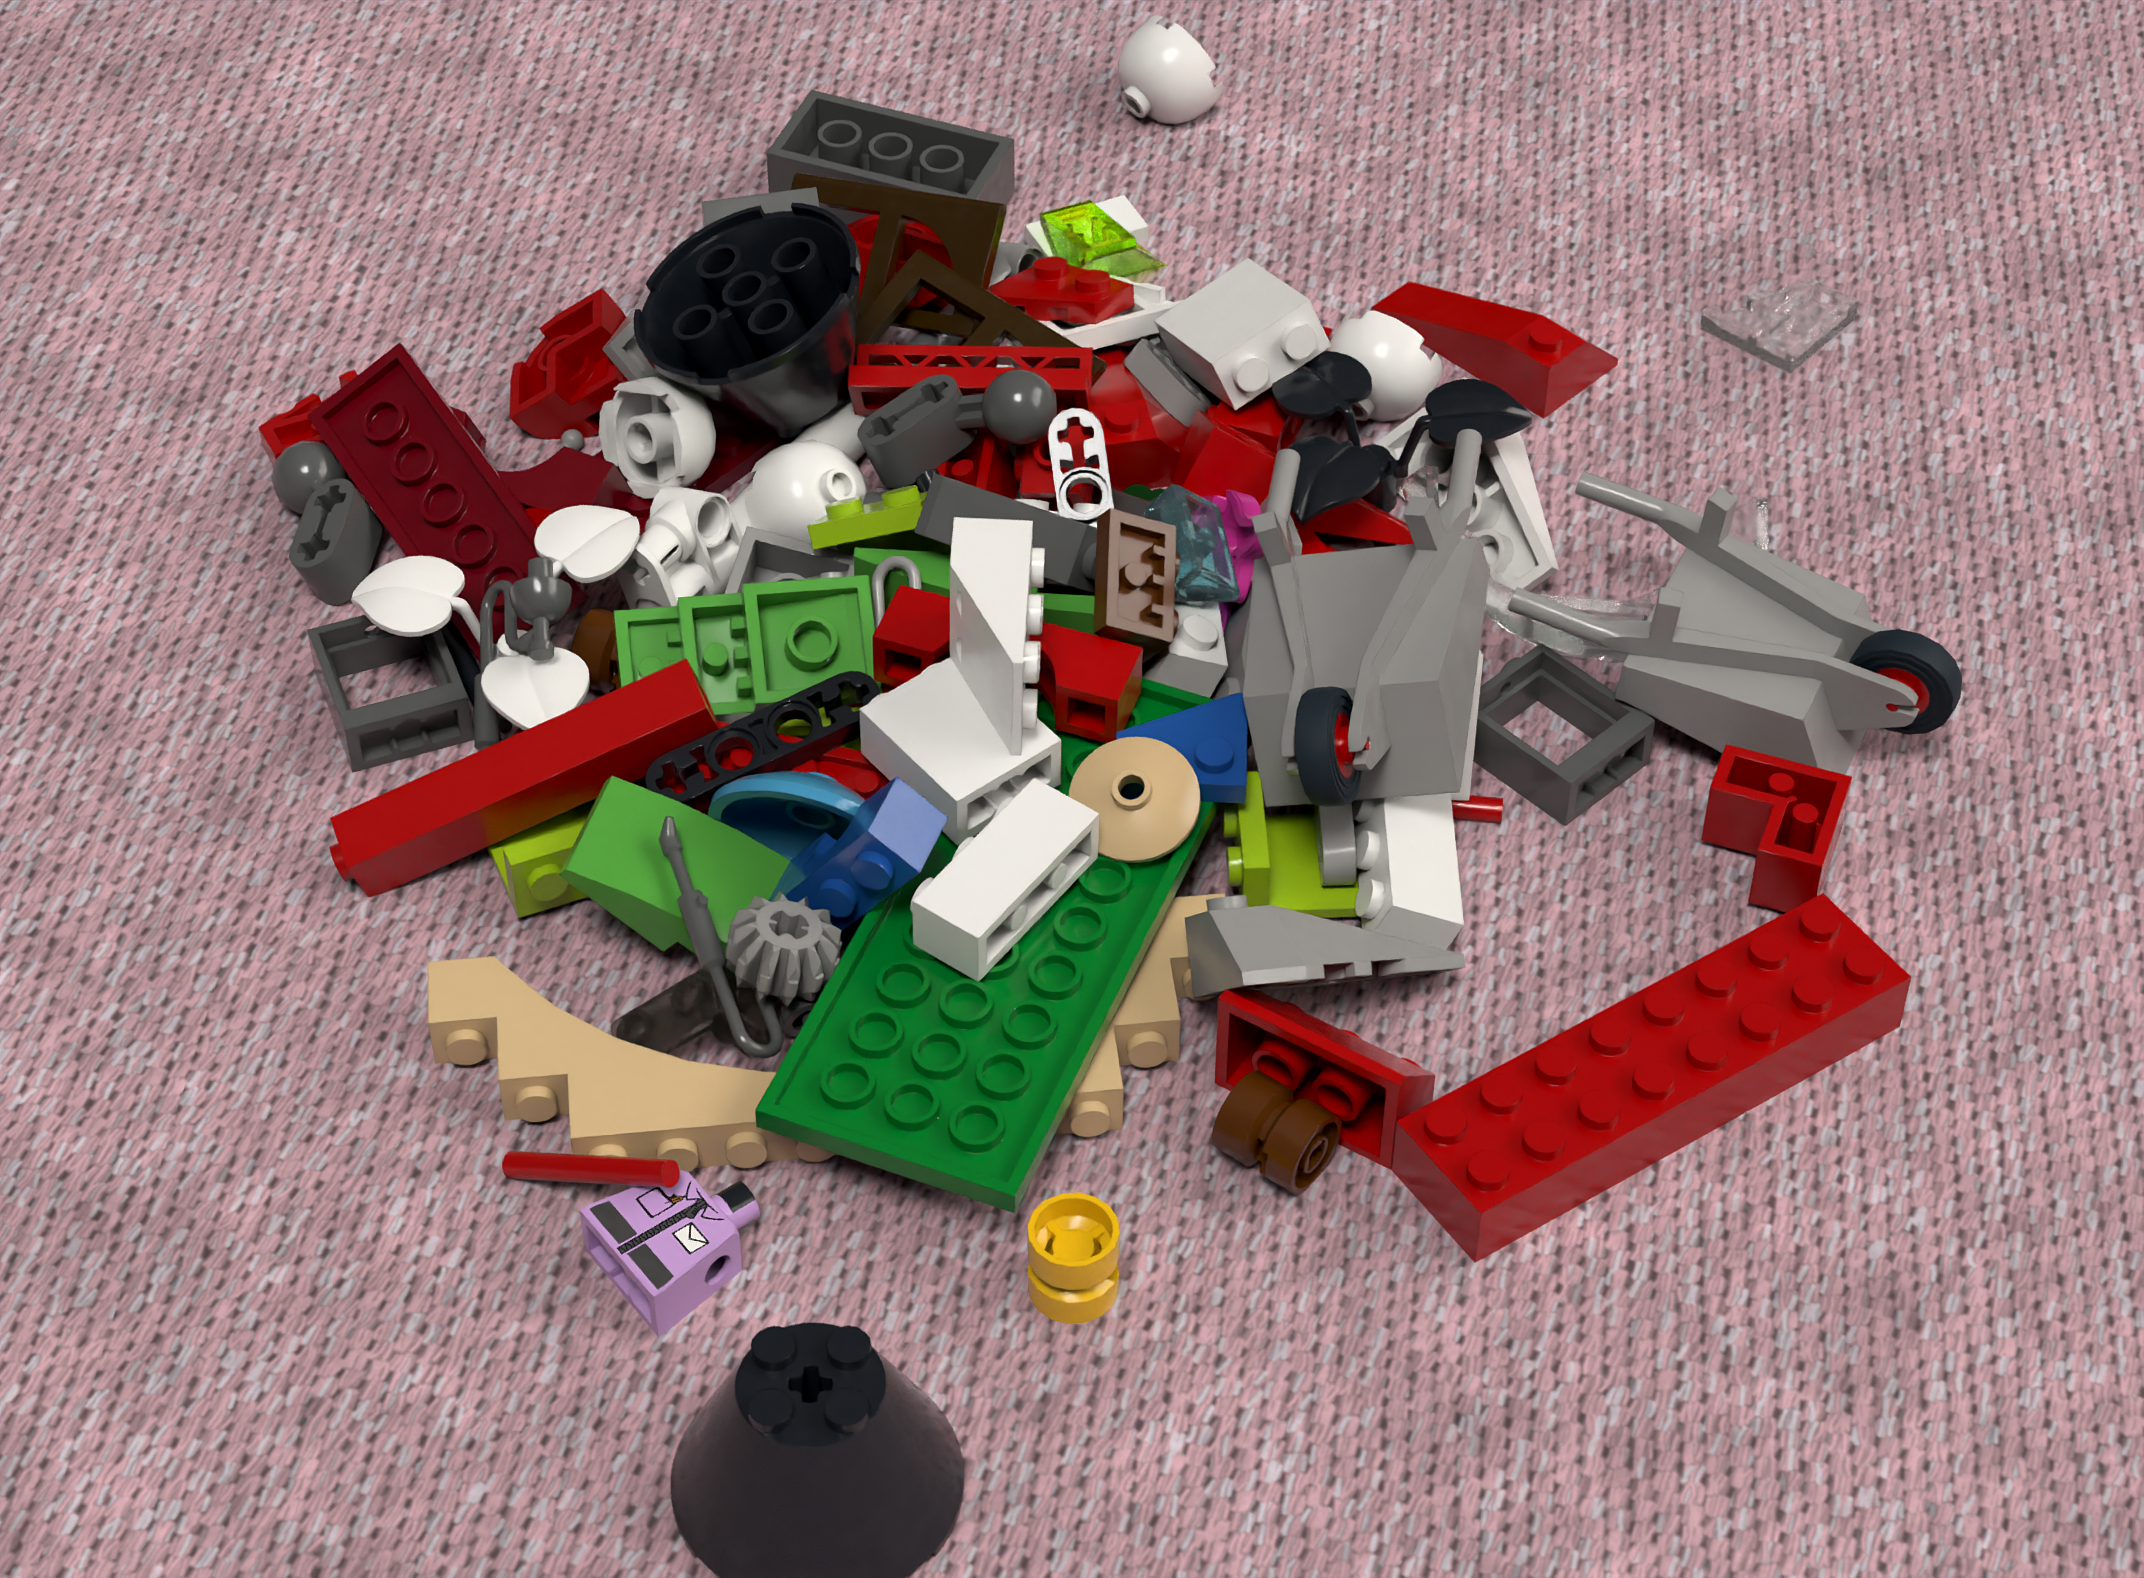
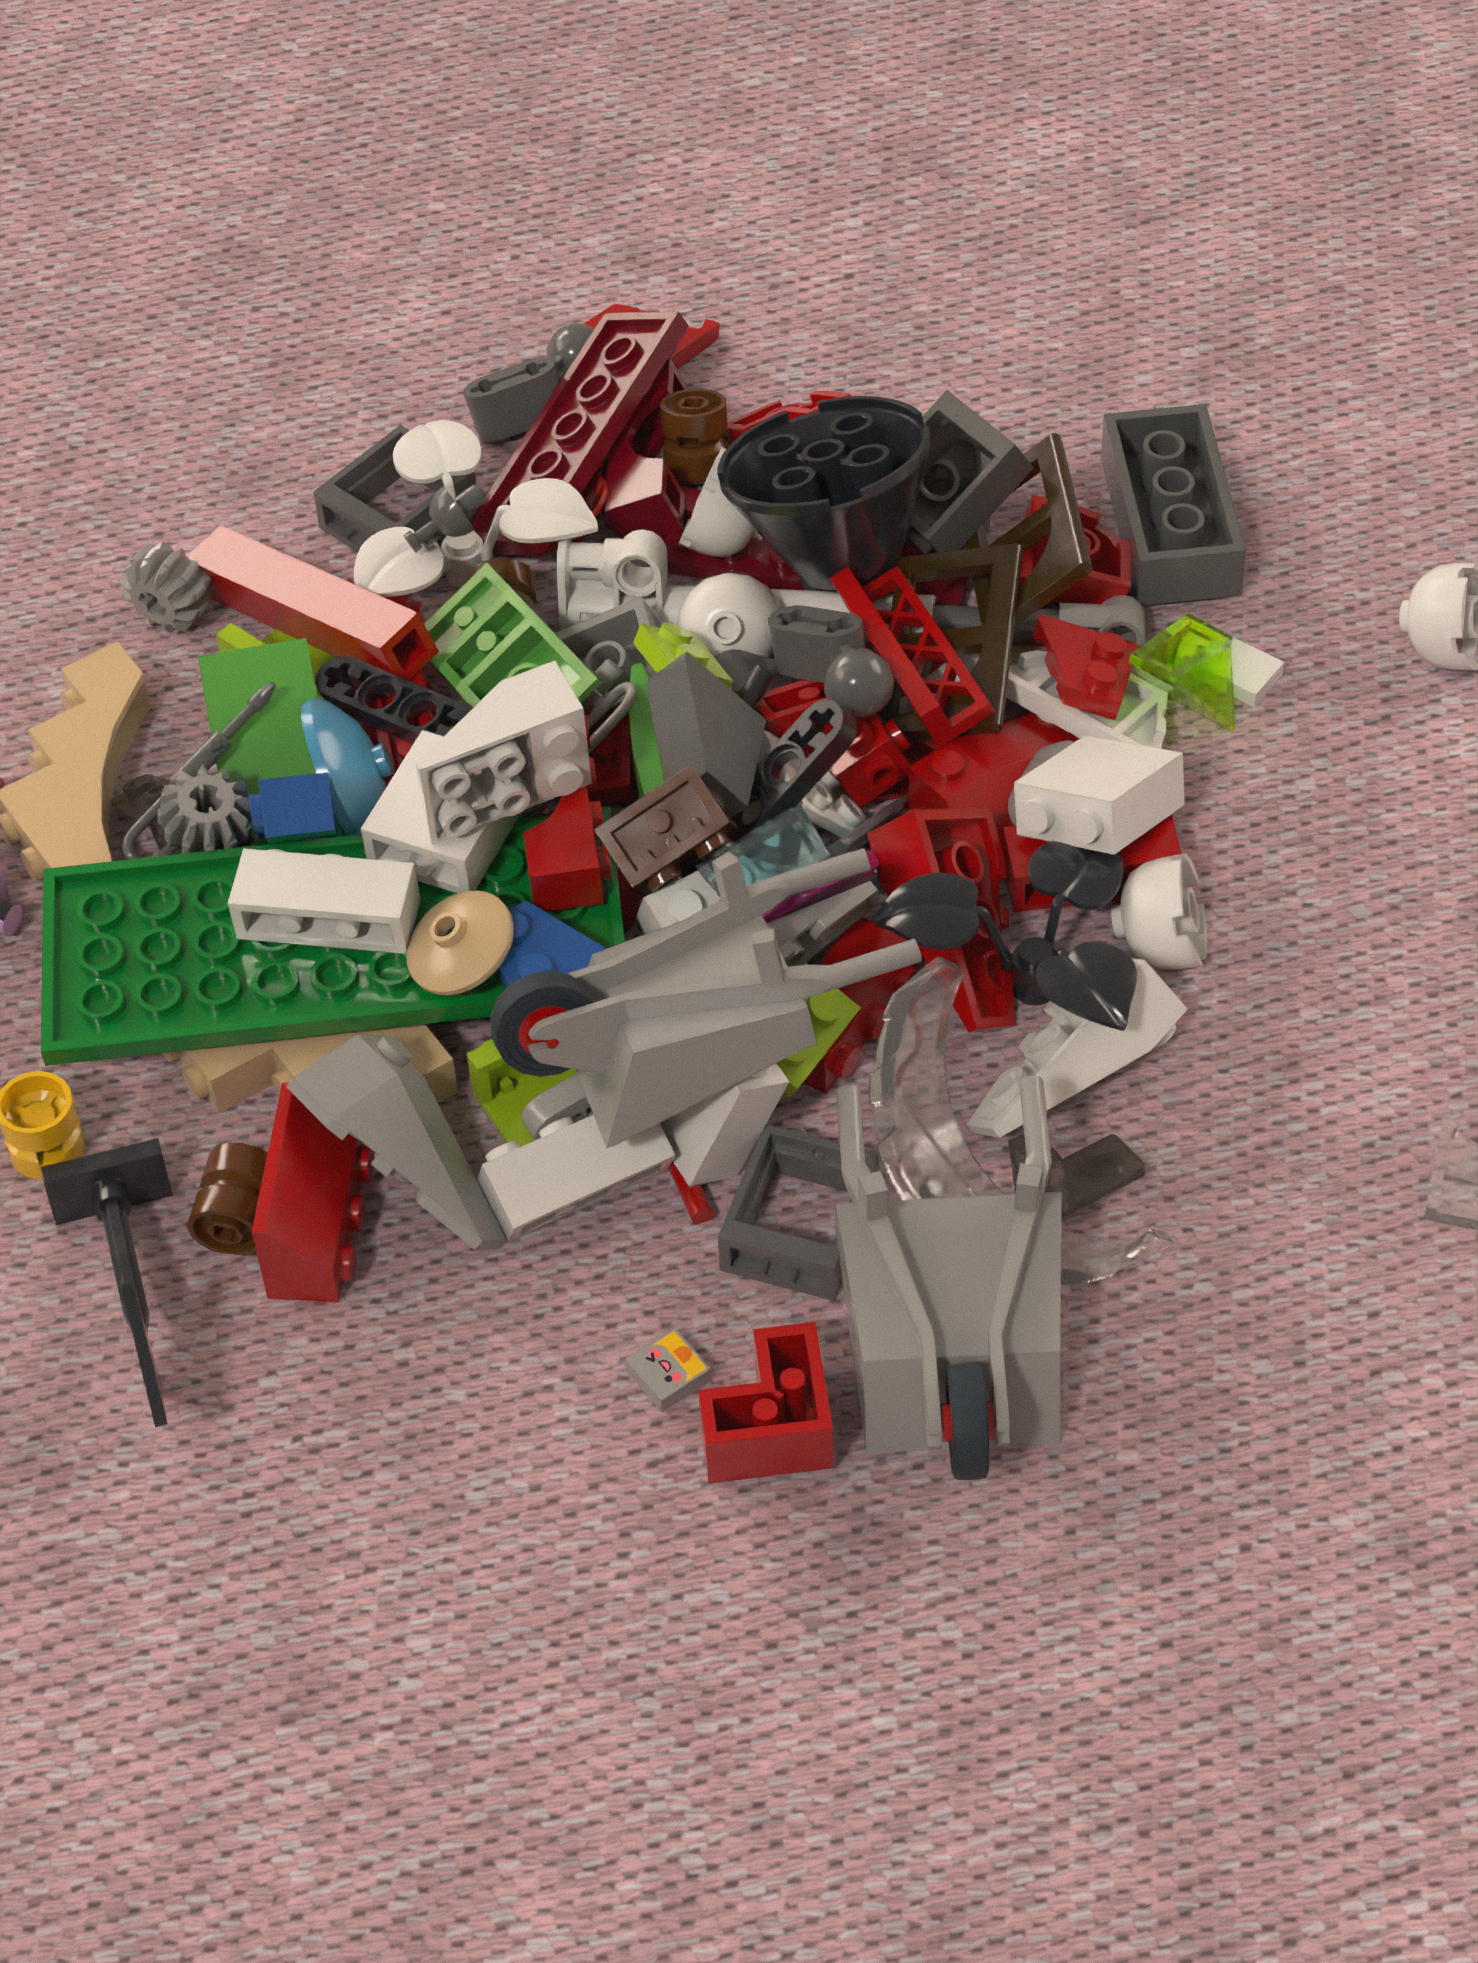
camera: 65 degrees right, 5 degrees up
(371, 900) = (166, 587): none -> light grey gear
(516, 423) = (693, 431): none -> reddish brown wheel
(1462, 1242) = (108, 1187): none -> black piece
(1501, 344) = (1297, 995): red wedge -> none
(1623, 552) = (1086, 1173): none -> clear smoke bracket
(1648, 1076) = (441, 1426): red brick -> none
(1666, 898) = (668, 1369): none -> light grey tile

